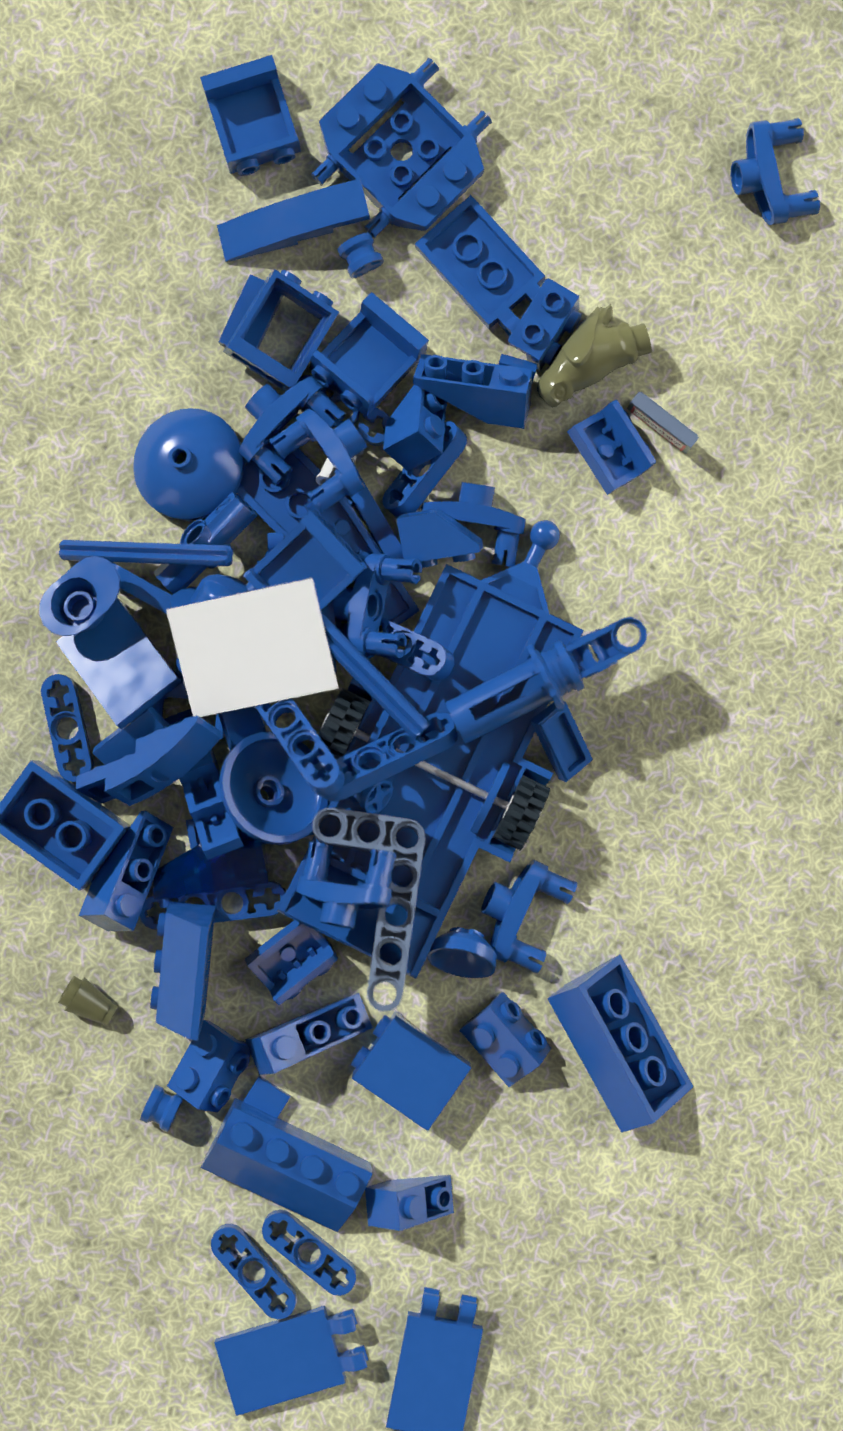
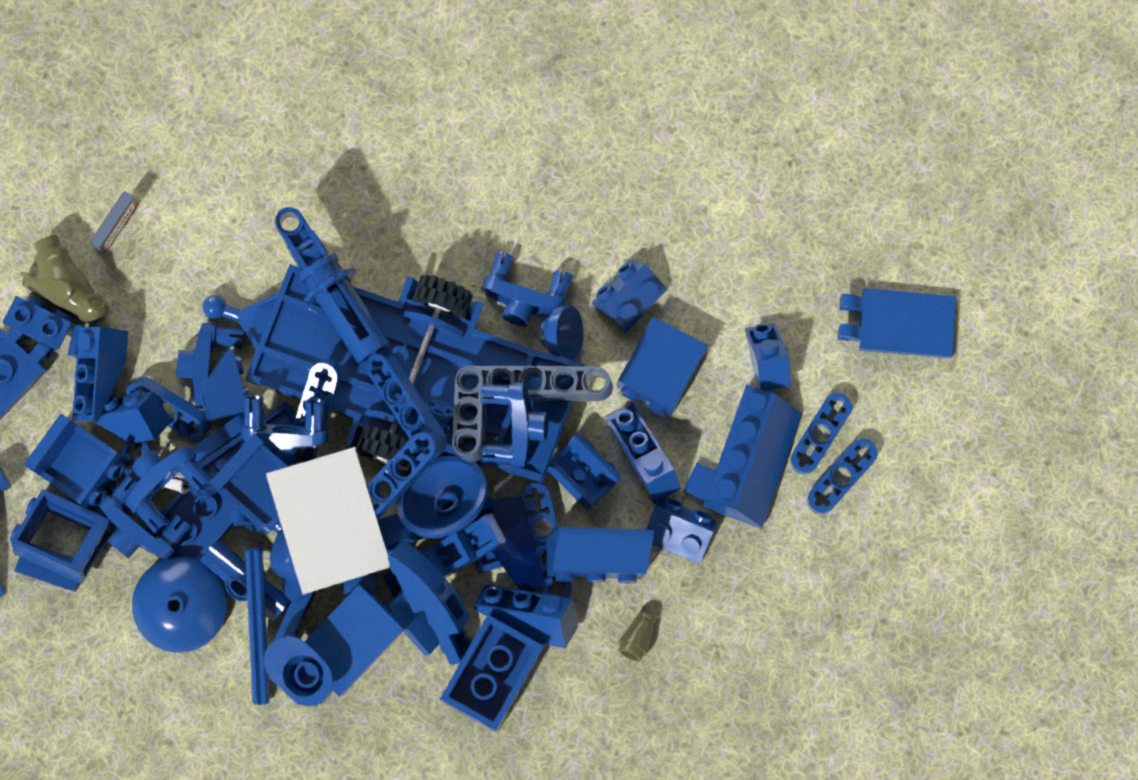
camera: 95 degrees left, 10 degrees down
(70, 698) = (386, 682): blue beam -> none
(161, 1108) = (718, 564): blue wheel -> none
(287, 1358) = (909, 441): blue tile -> none
(373, 681) = (347, 418): blue axle -> none
(561, 741) = (382, 274): blue tile -> none
(612, 447) = (137, 259): blue bracket -> none
(621, 1044) = (622, 204): blue slope -> none

